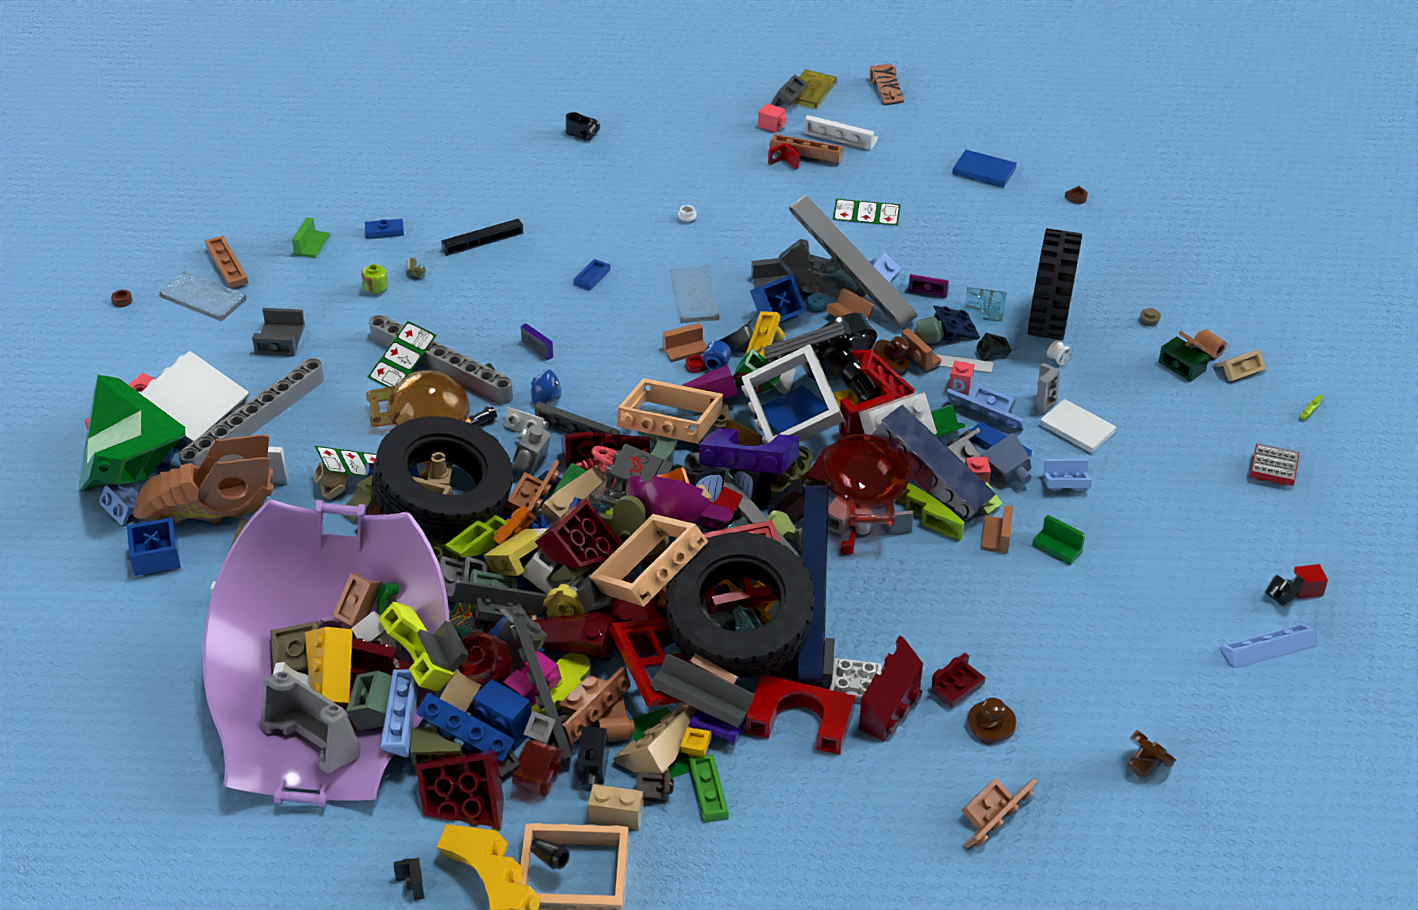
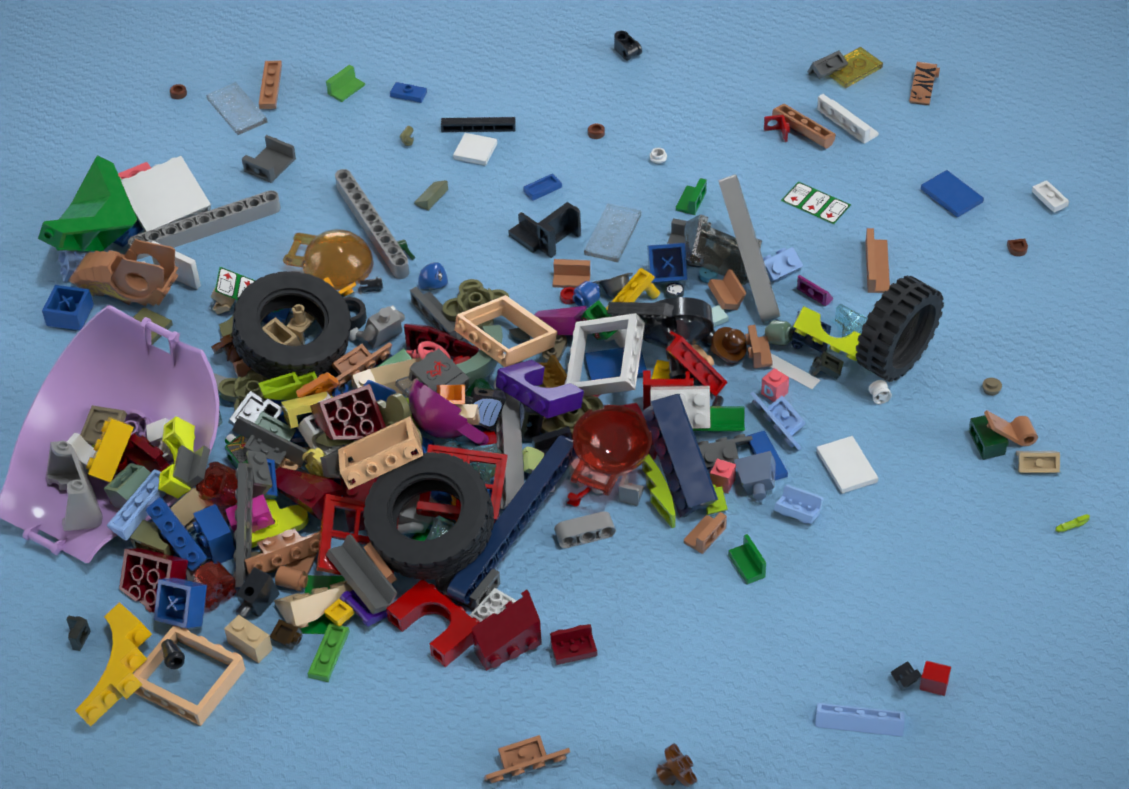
camera: 30 degrees right, 5 degrees up
(356, 599) = (159, 404): nougat panel -> none
(374, 278) = (367, 135): lime head -> none
(385, 594) = (181, 406): green arm -> none
(402, 354) = (343, 209): sticker -> none
(482, 314) = (432, 194): none -> olive slope
(496, 260) = (475, 149): none -> white tile
(517, 420) = (399, 300): white hinge -> none
(519, 796) = (180, 602): none -> blue brick
(537, 341) = (455, 233): tile -> none
(539, 727) = (226, 555): light grey panel -> none
(603, 397) = (470, 296): none -> olive plant
(607, 209) = (596, 131): none -> copper tile
(612, 318) = (525, 232): none -> black panel
(646, 296) = (558, 226): none -> black panel
(676, 412) = (518, 334): none -> pearl dark grey tile
(728, 499) = (493, 427): red bracket -> none
(749, 242) = (692, 197): none -> green panel
(771, 117) = (794, 86): coral brick -> none
(796, 327) = (674, 290): none -> tile
(882, 570) = (584, 529): none -> light grey beam
(960, 308) = (809, 323): none -> neon yellow arch
(964, 245) = (876, 263): none -> nougat panel
(991, 721) = (578, 689): reddish brown plate -> none
(1047, 388) = (836, 422): light grey bracket -> none
(1072, 145) = (1050, 196): none -> white plate
(1274, 465) = (992, 563): tile -> none

